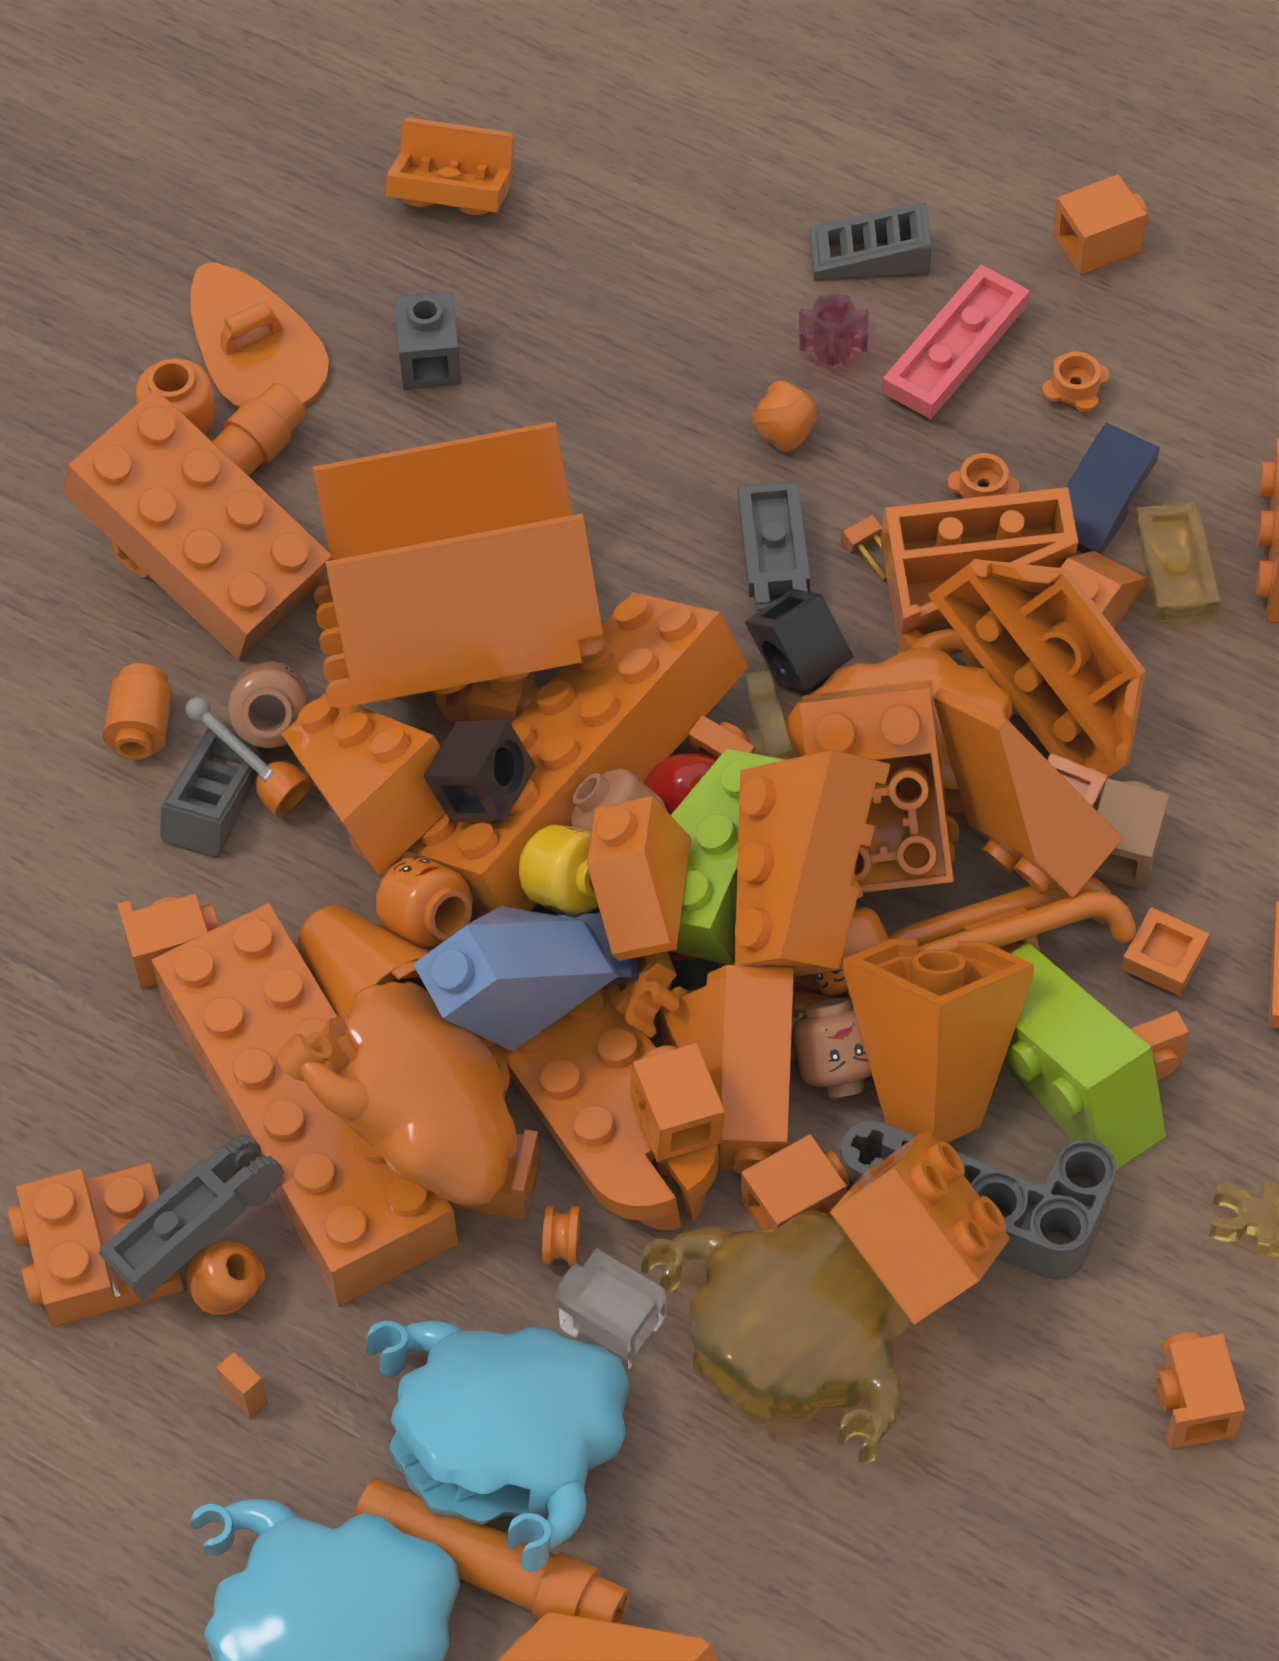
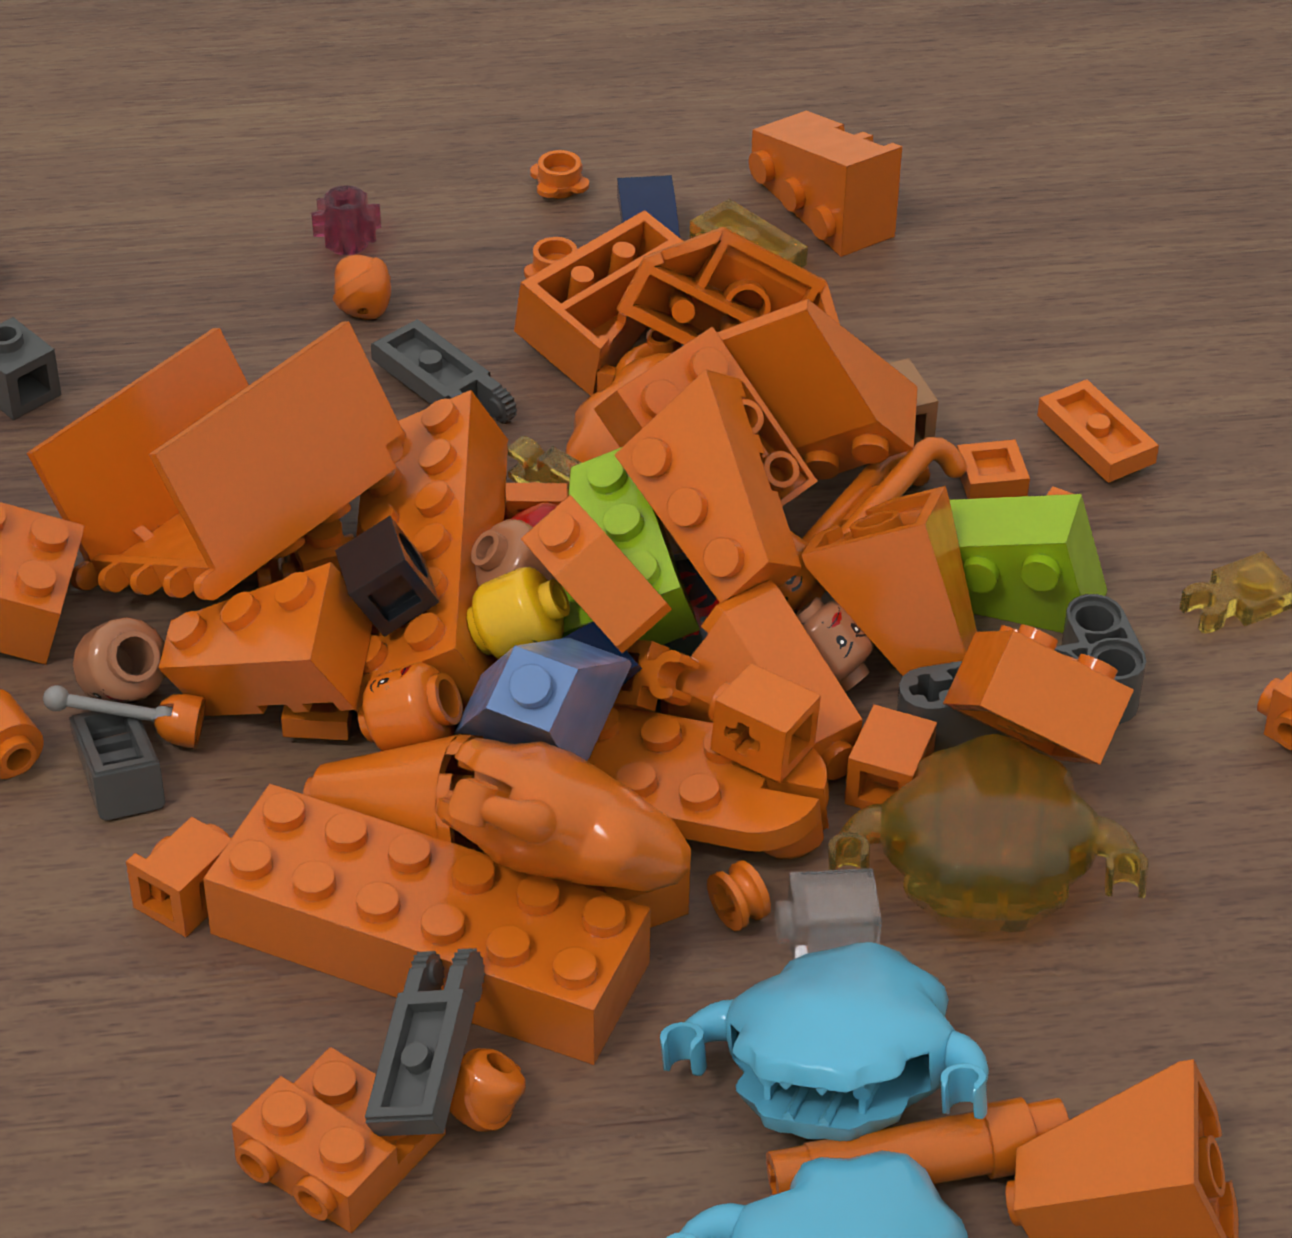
camera: 40 degrees left, 15 degrees down
(242, 1384) = (579, 1159): orange piece -> none
(799, 640) = (529, 403): black brick -> none
(860, 535) = (492, 340): orange piece -> none
(903, 229) = (336, 149): dark grey slope -> none
(955, 341) = (446, 190): coral plate -> none
(1100, 224) = (483, 77): orange brick -> none

